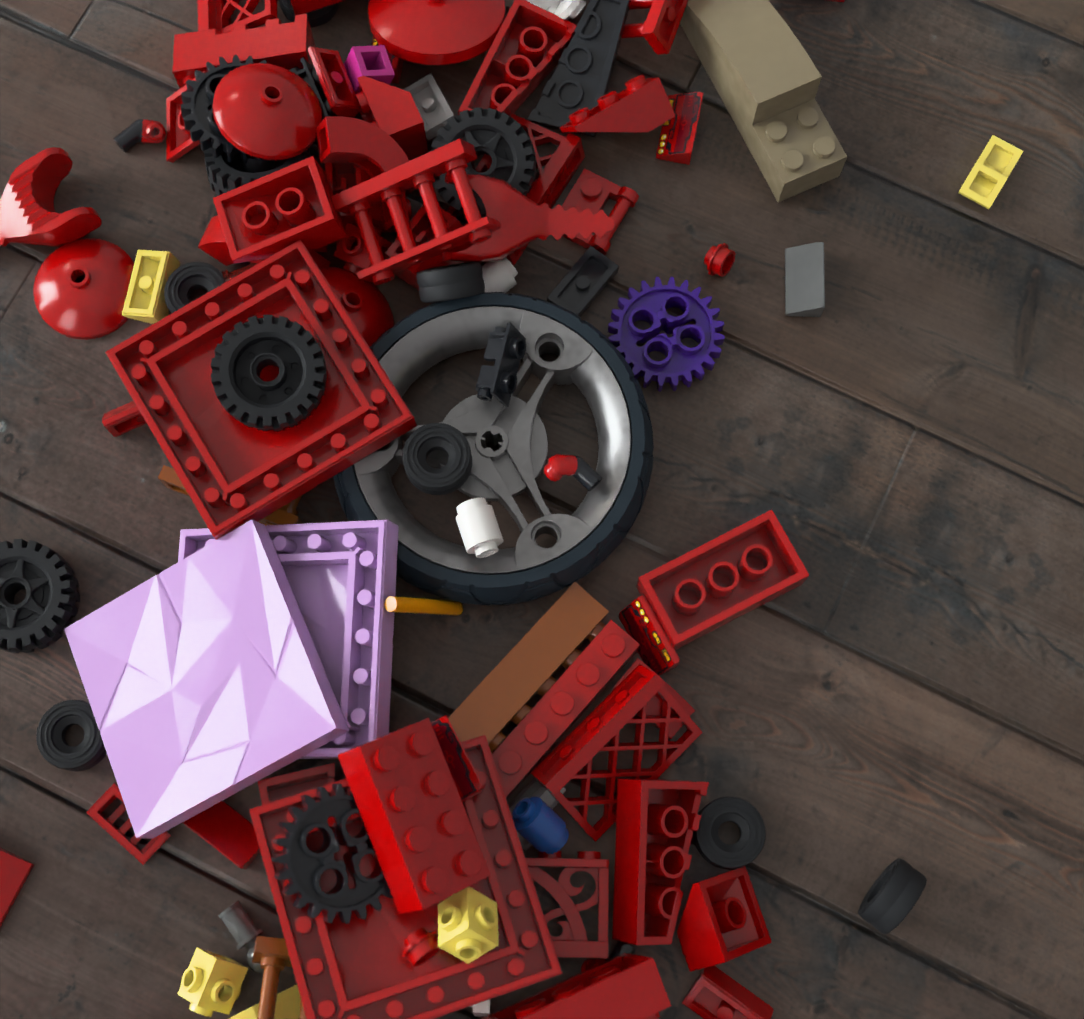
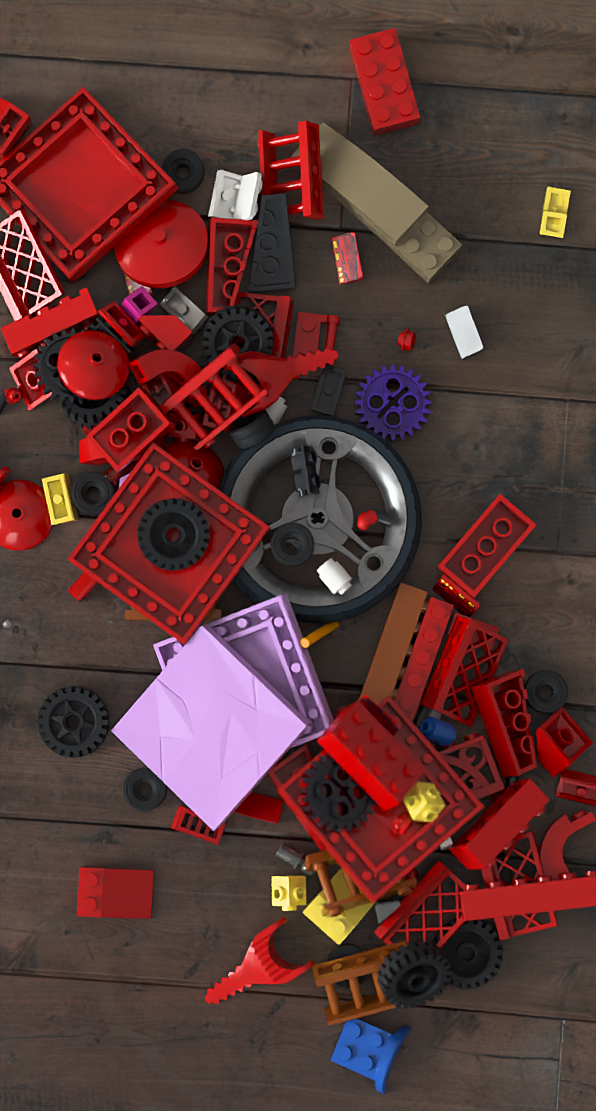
camera: 20 degrees left, 10 degrees up
(632, 110) = (311, 267): red slope -> none

